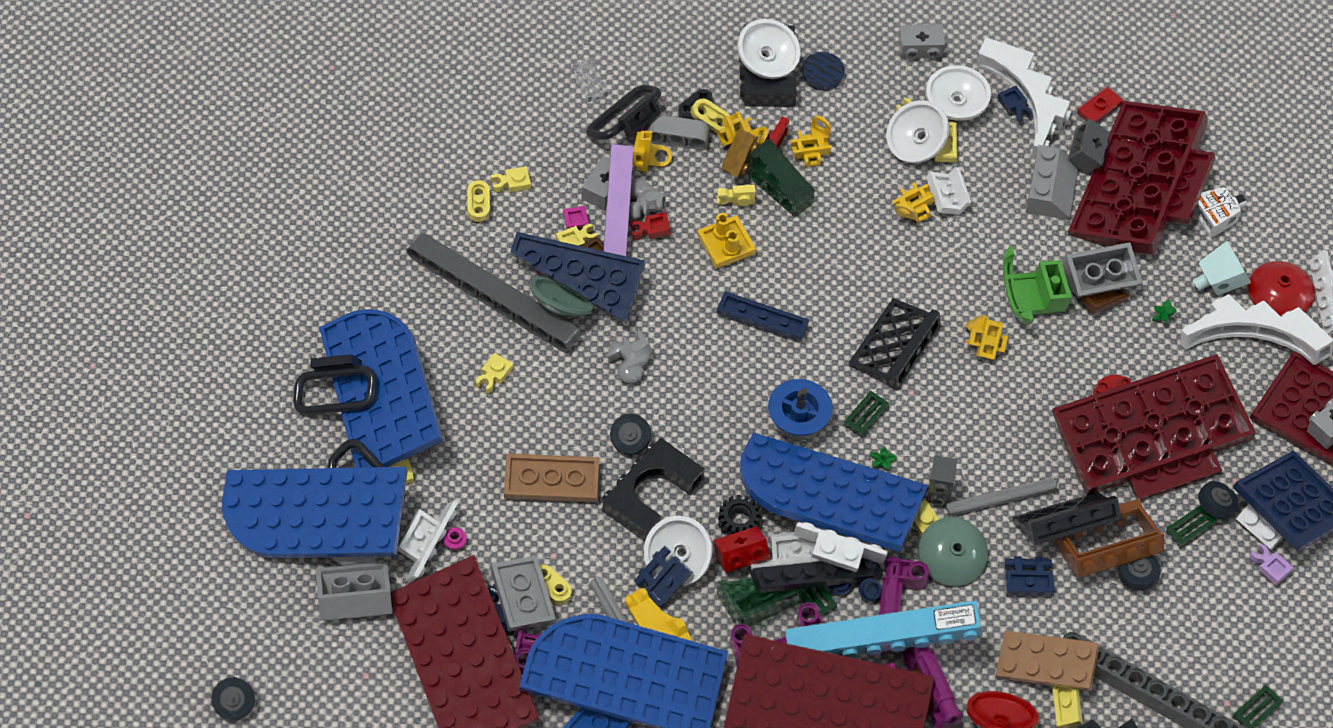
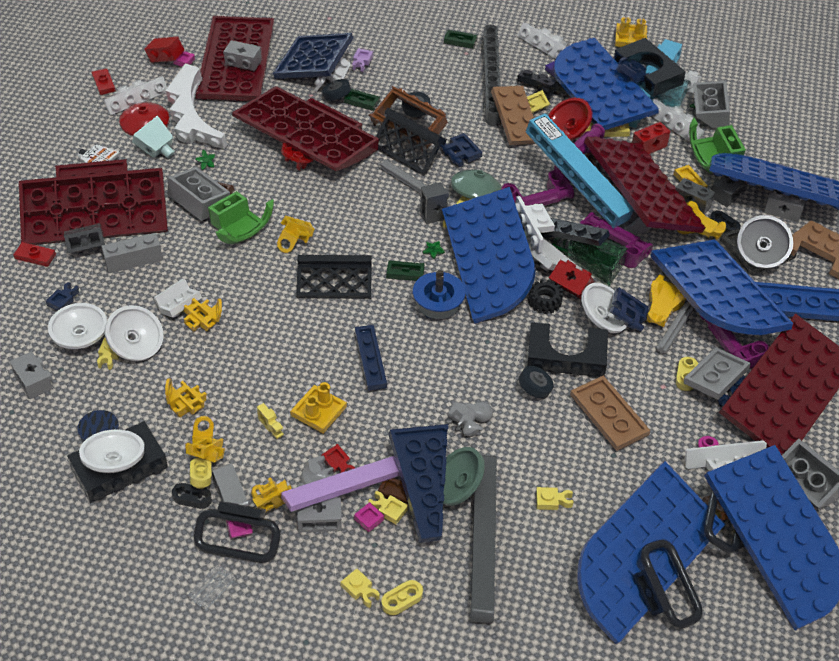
camera: 120 degrees left, 10 degrees down
(739, 153) = (231, 428): pearl gold bracket -> none
(779, 132) = (185, 422): red plate -> none
(780, 178) = (236, 398): clear green wedge -> none
(1017, 69) = (27, 308): white arch -> none

